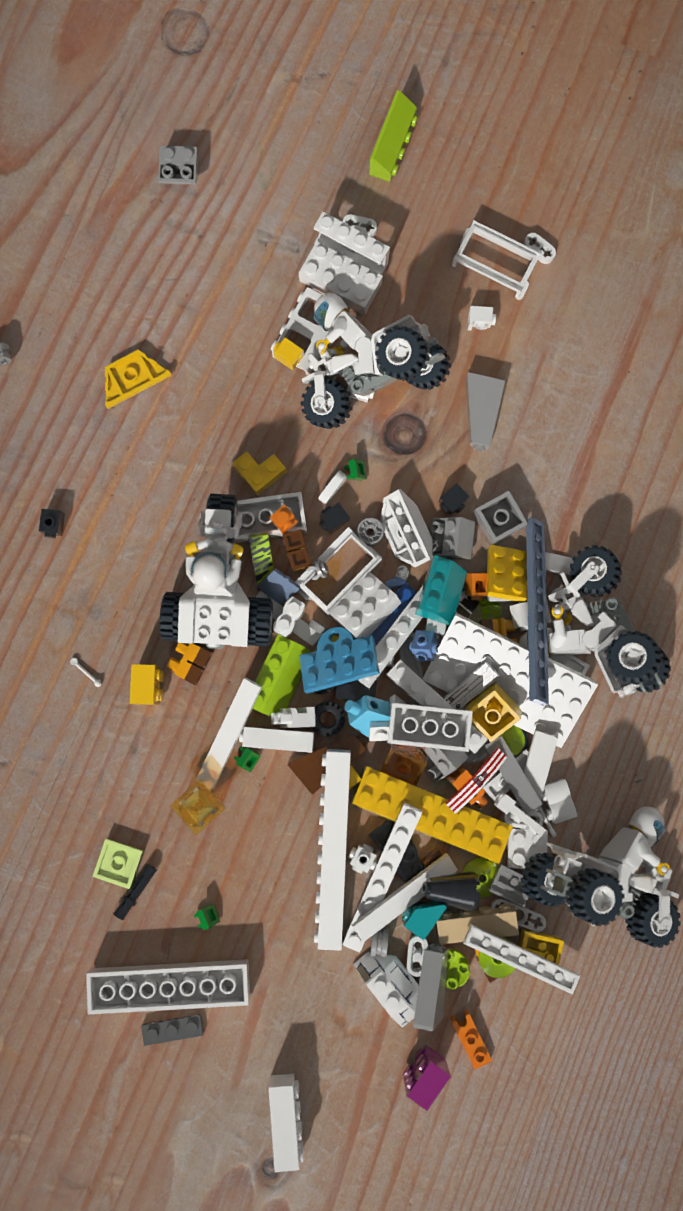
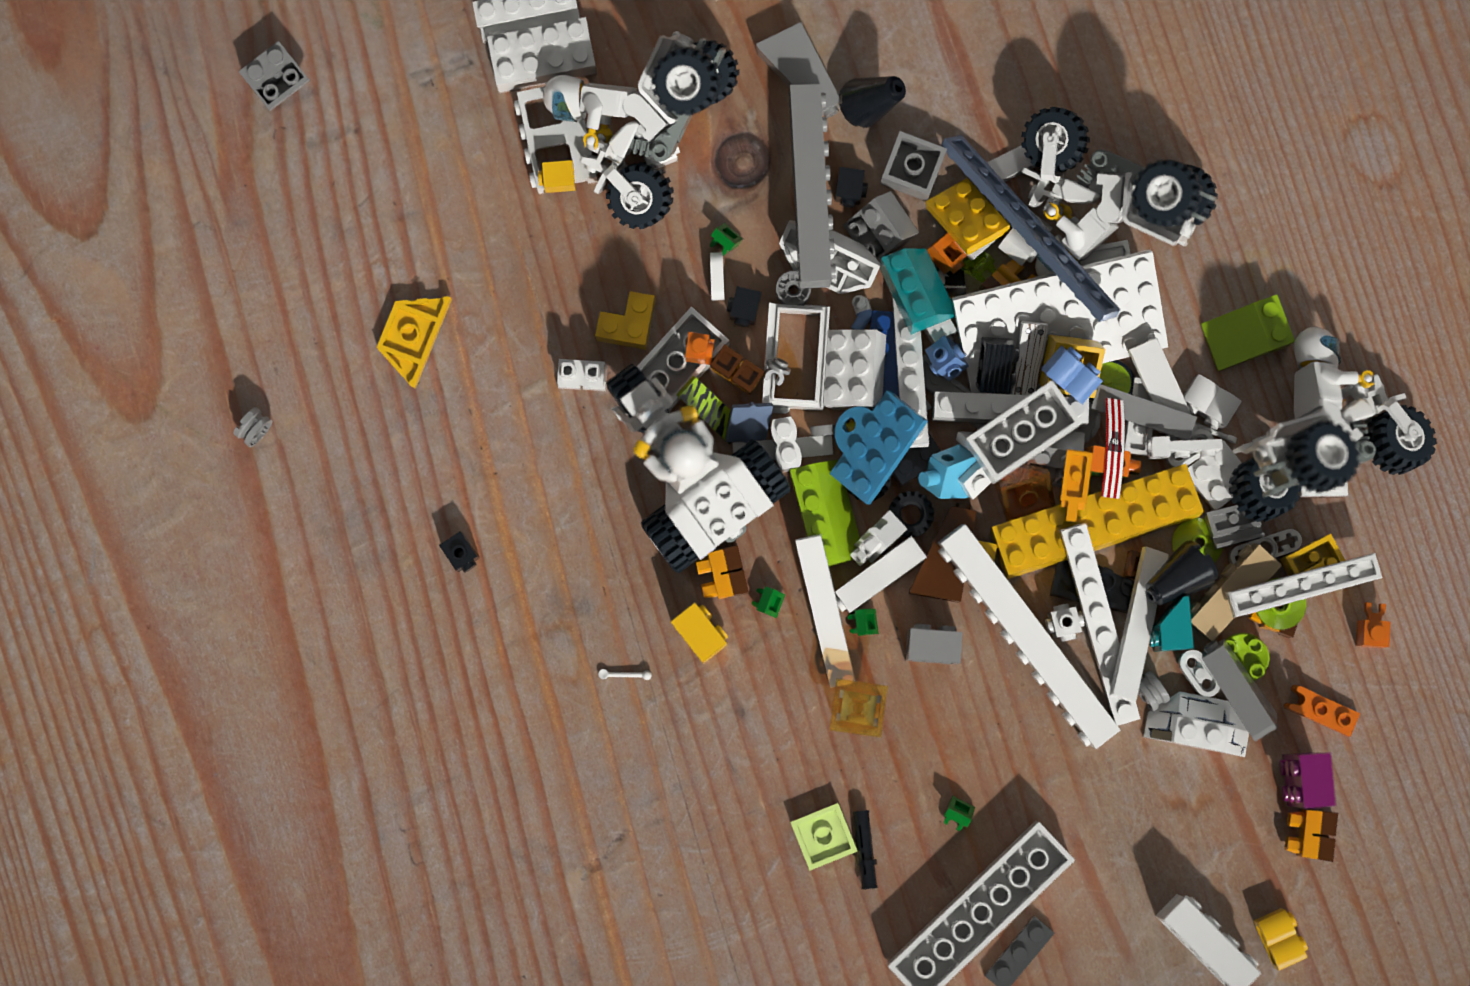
camera: 35 degrees left, 0 degrees up
(203, 700) = (770, 601): none -> green tile
(207, 478) = (578, 373): none -> white hips
(274, 807) = (933, 646): none -> light grey brick
(331, 1154) = (1280, 938): none -> yellow brick
(402, 1111) = (1308, 845): none -> light orange hips
(427, 479) = (810, 186): none -> light grey brick
(437, 782) = (1075, 482): none -> light orange hinge
(449, 674) = (996, 365): none -> black brick
(488, 718) = (1072, 374): none -> medium blue brick
(507, 458) = (870, 99): none -> black cone
(540, 1019) = (1373, 631): none -> orange brick
(615, 779) = (1247, 333): none -> lime slope

